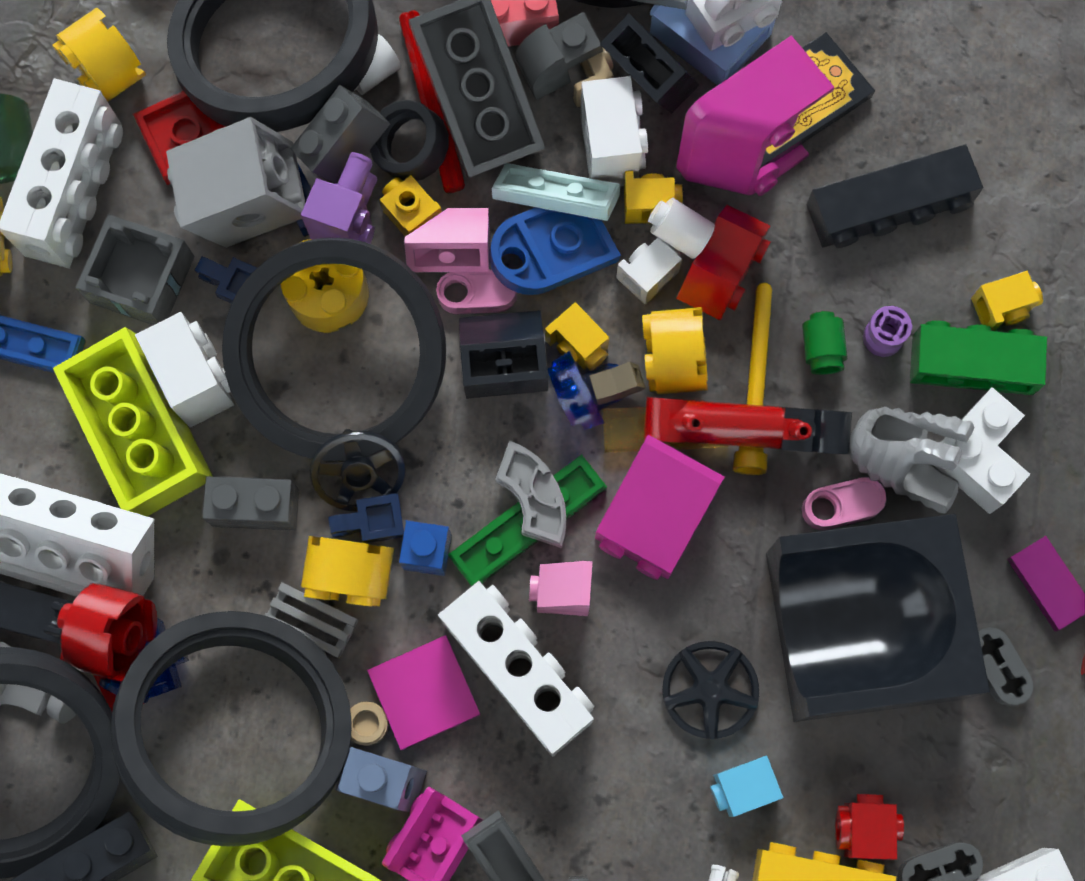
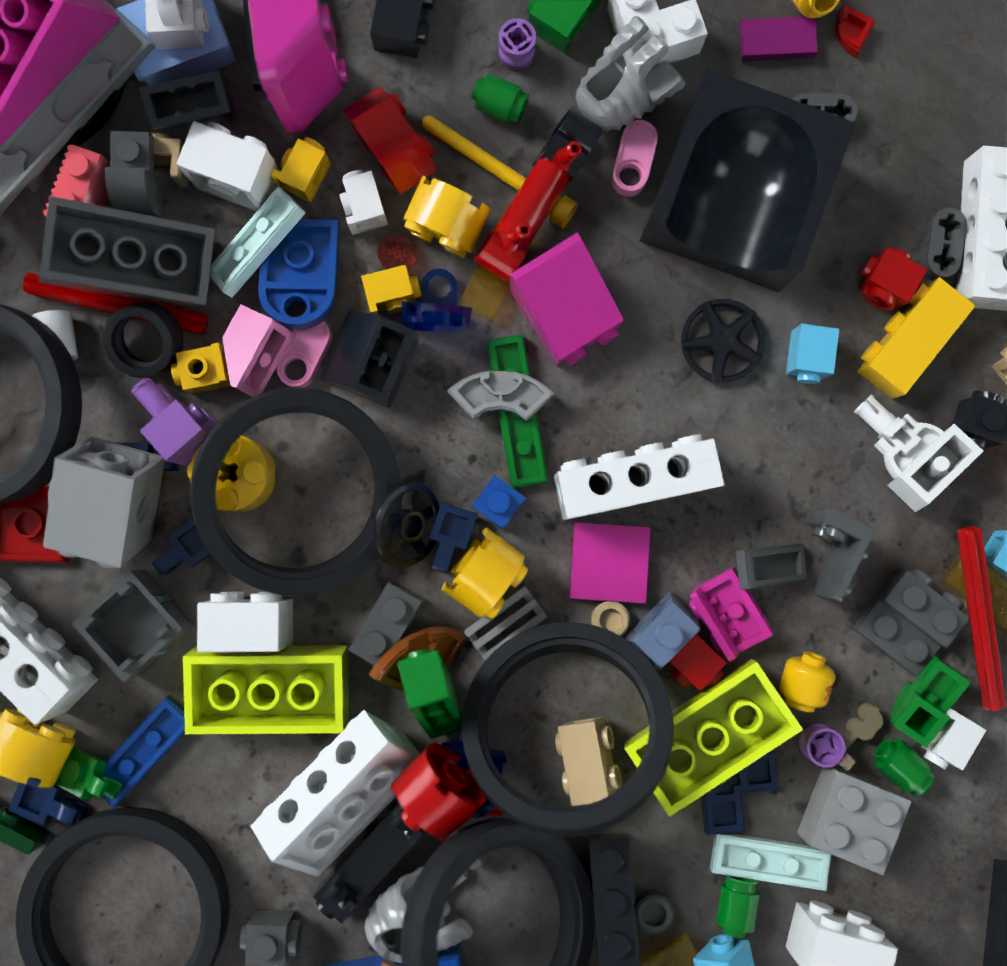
camera: 70 degrees left, 10 degrees up
(200, 573) = (431, 693): none -> green brick
(214, 767) = (587, 760): none -> tan brick
(236, 546) = (440, 638): none -> dark orange tile
(339, 128) = (105, 395): dark grey brick -> none
(364, 830) = (697, 665): none -> red brick
(562, 588) = (590, 409): bright pink slope -> none
(617, 382) = (444, 280): dark tan piece -> none
(621, 326) = (396, 251): none -> clear red tile
(681, 227) = (345, 155): white brick -> none

